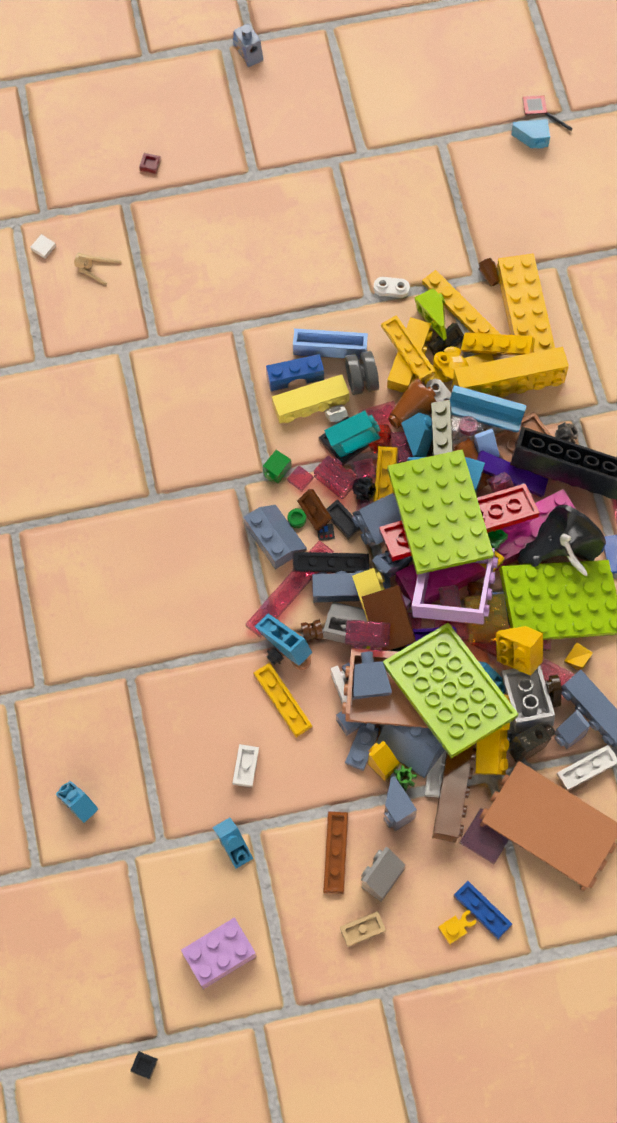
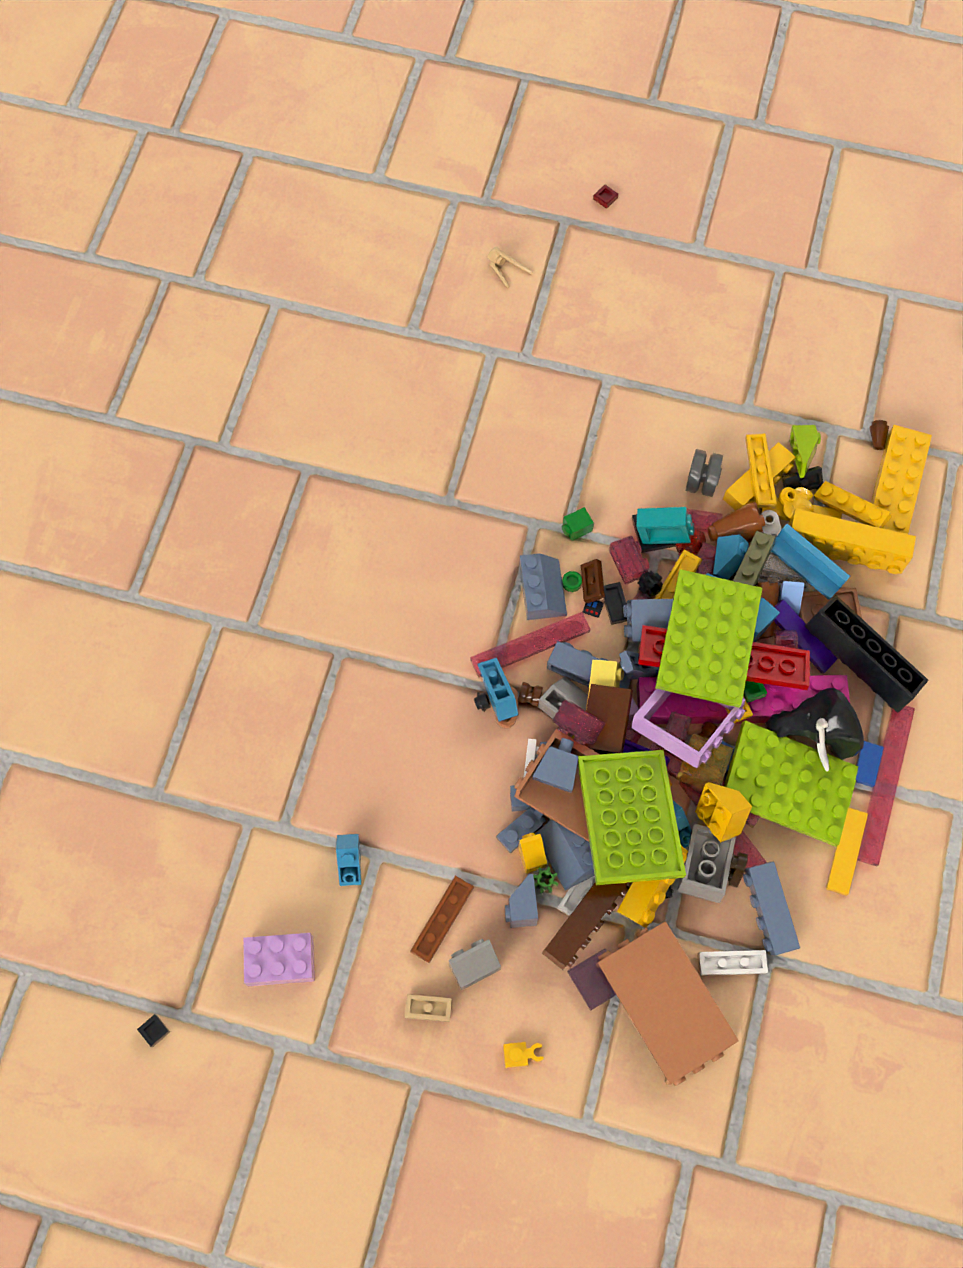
camera: 25 degrees right, 0 degrees up
(43, 246) = (468, 228): white tile -> none
(77, 801) = (226, 747): dark azure slope -> none
(243, 40) = (752, 120): sand blue torso -> none
(245, 766) = (400, 792): white plate -> none
(282, 373) = (652, 444): blue arch -> none
(282, 700) = (468, 747): yellow tile -> none
(300, 478) = (594, 545): clear pink tile -> none
(310, 399) = (643, 476): light yellow brick -> none
(328, 343) = (686, 431): light blue brick -> none
(330, 562) = (580, 637): black tile -> none
(336, 413) = (660, 500): white plate -> none
(364, 468) = (661, 565): clear pink plate -> none
(391, 287) = (775, 407): white plate -> none
(458, 305) = (832, 452): yellow plate -> none
(468, 426) = (782, 570): clear pink tile -> none
(483, 910) = (555, 1051): blue tile -> none
(530, 742) = (688, 908): clear smoke torso -> none
(567, 432) = (879, 622): flat silver gear -> none
(572, 730) = (735, 917): sand blue slope -> none
(578, 656) = (779, 847): yellow slope -> none

